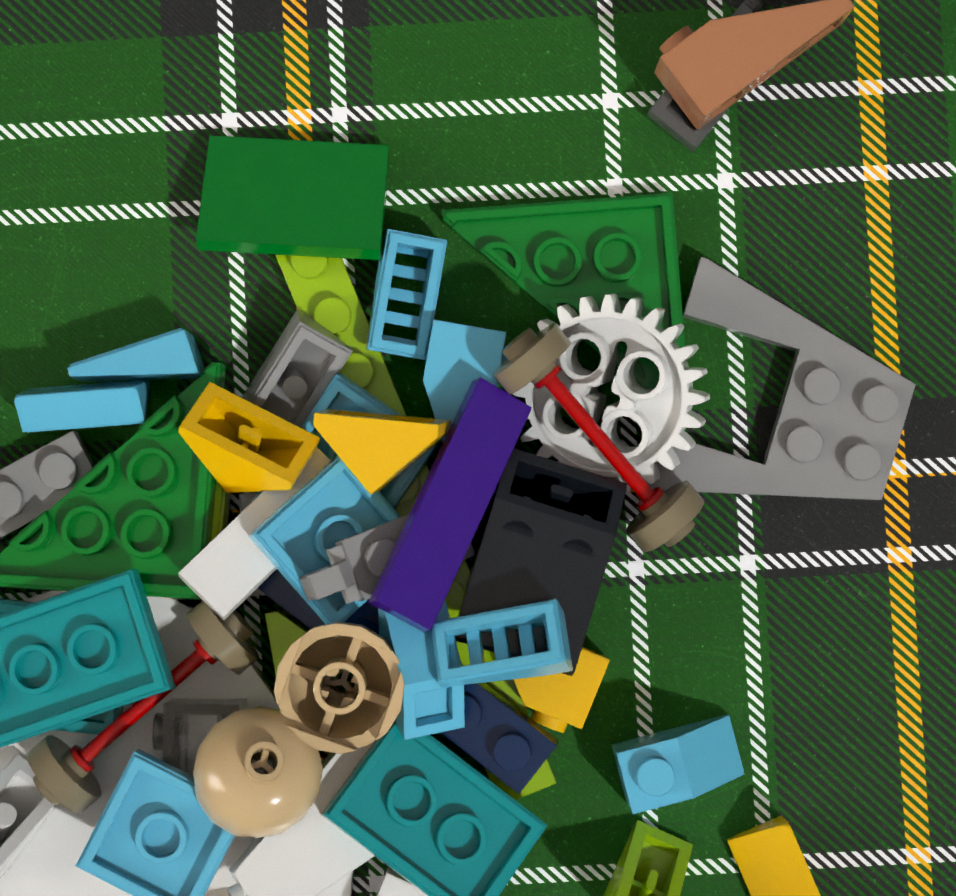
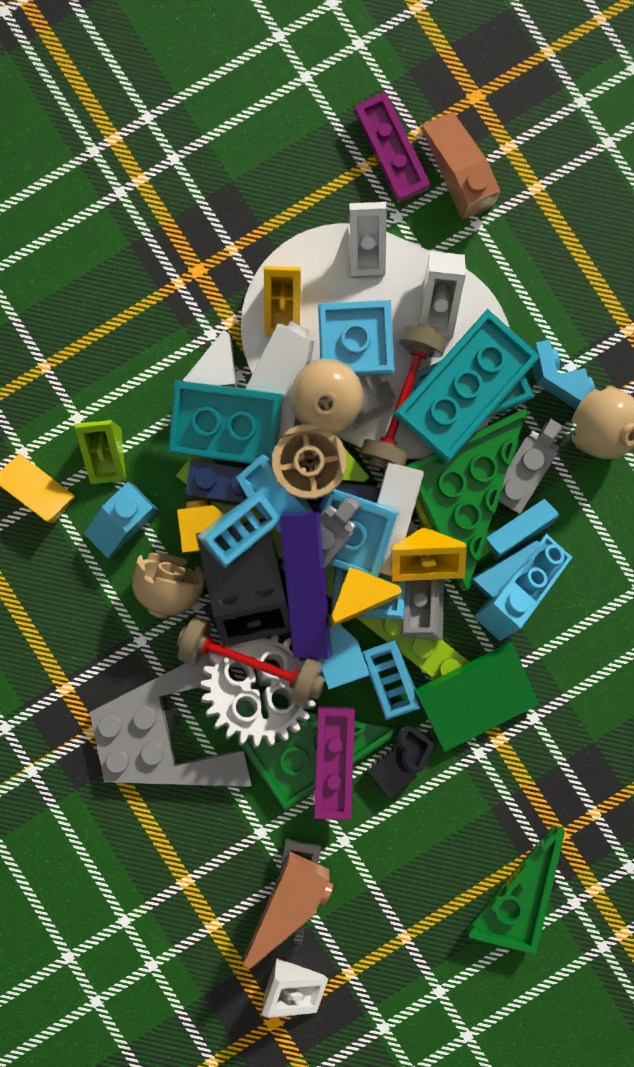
camera: 145 degrees right, 0 degrees up
(143, 307) = (523, 593): none -> medium azure slope
(432, 177) = (412, 748): none -> black tile
(483, 159) = (388, 774): none -> black tile
(558, 220) = (334, 763): none -> magenta plate
(662, 624) = (166, 585): none -> tan cylinder

